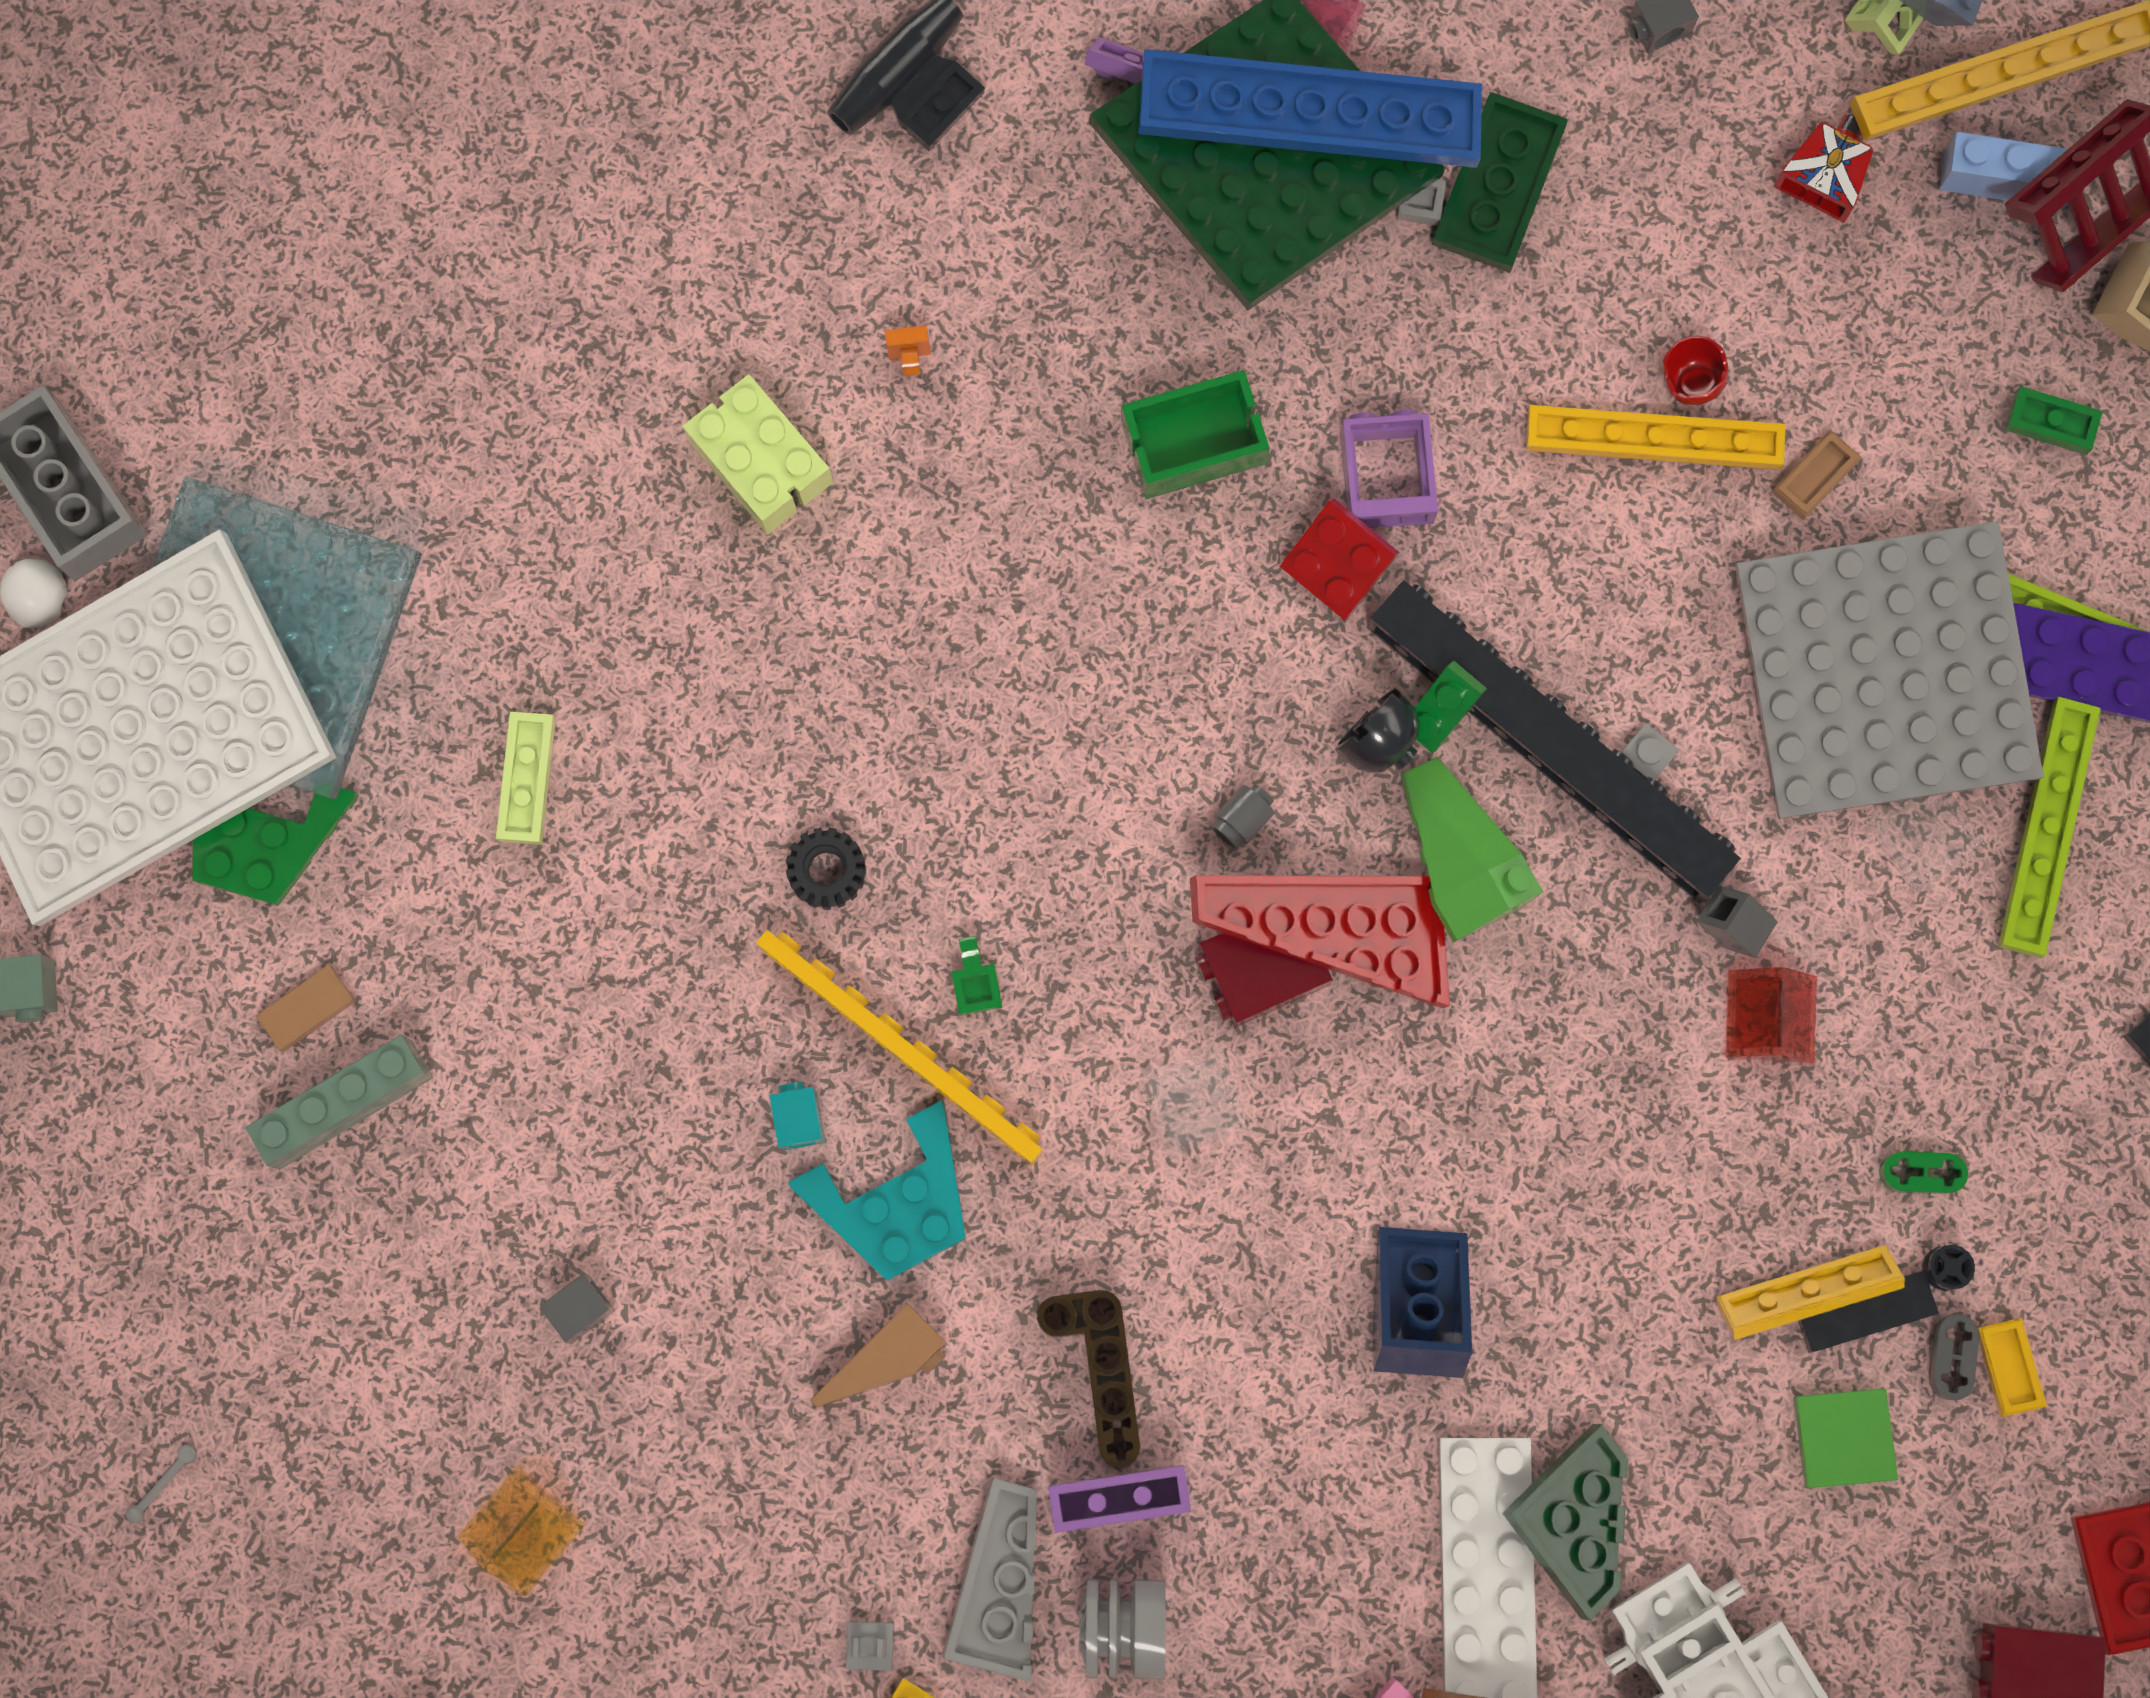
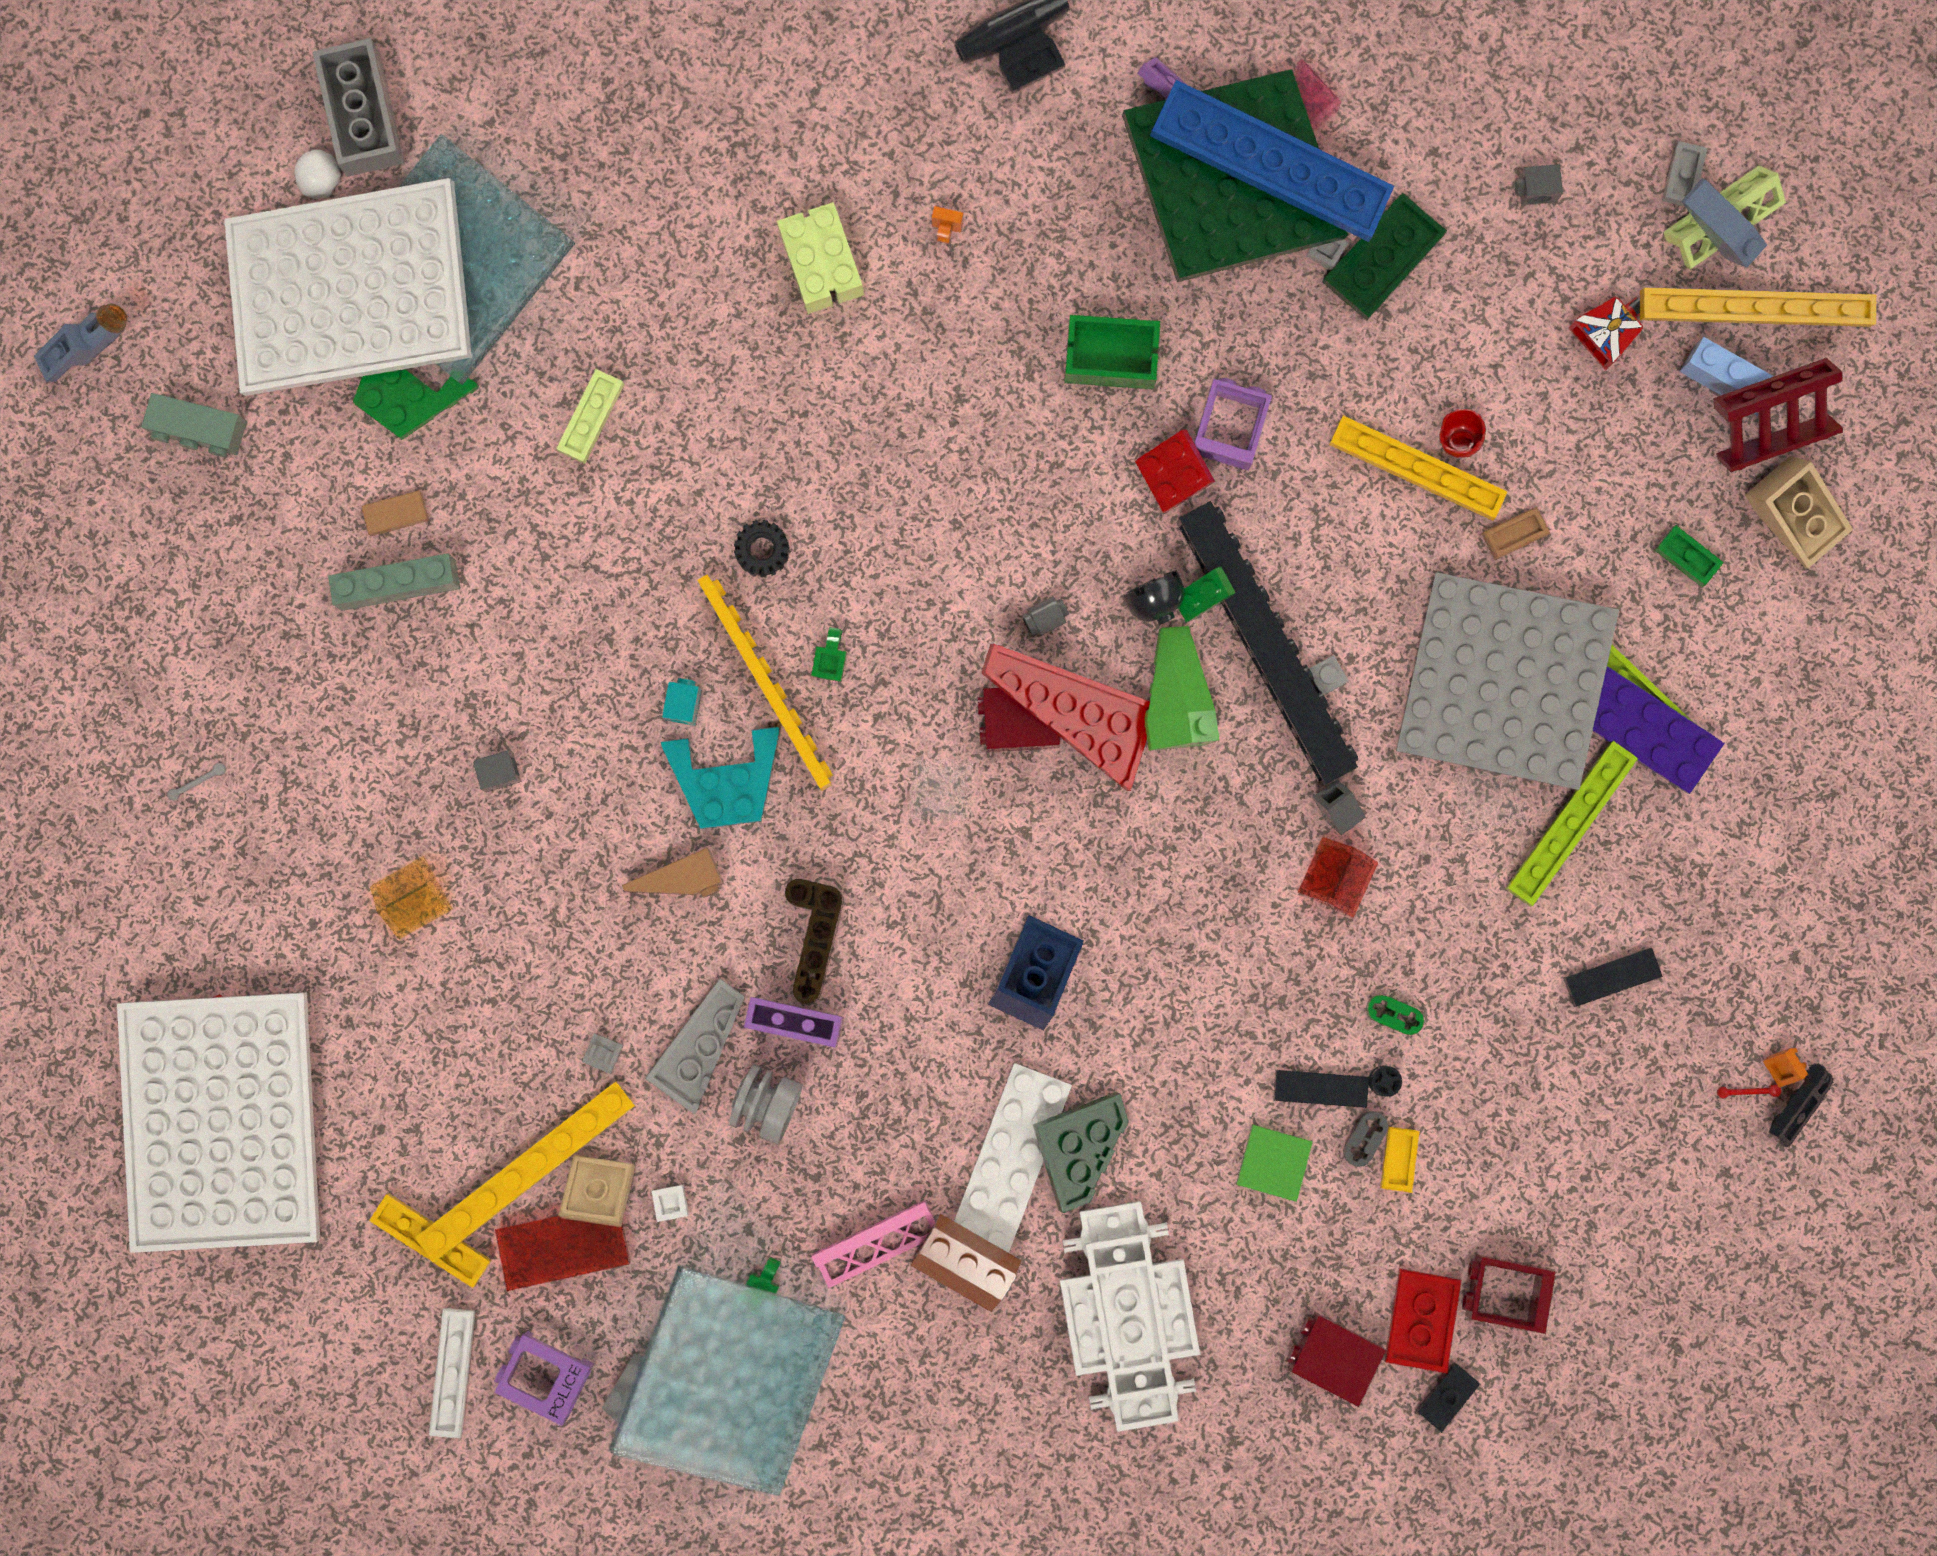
camera: 20 degrees right, 5 degrees up
(1810, 1292) = (1289, 1062): yellow tile -> none

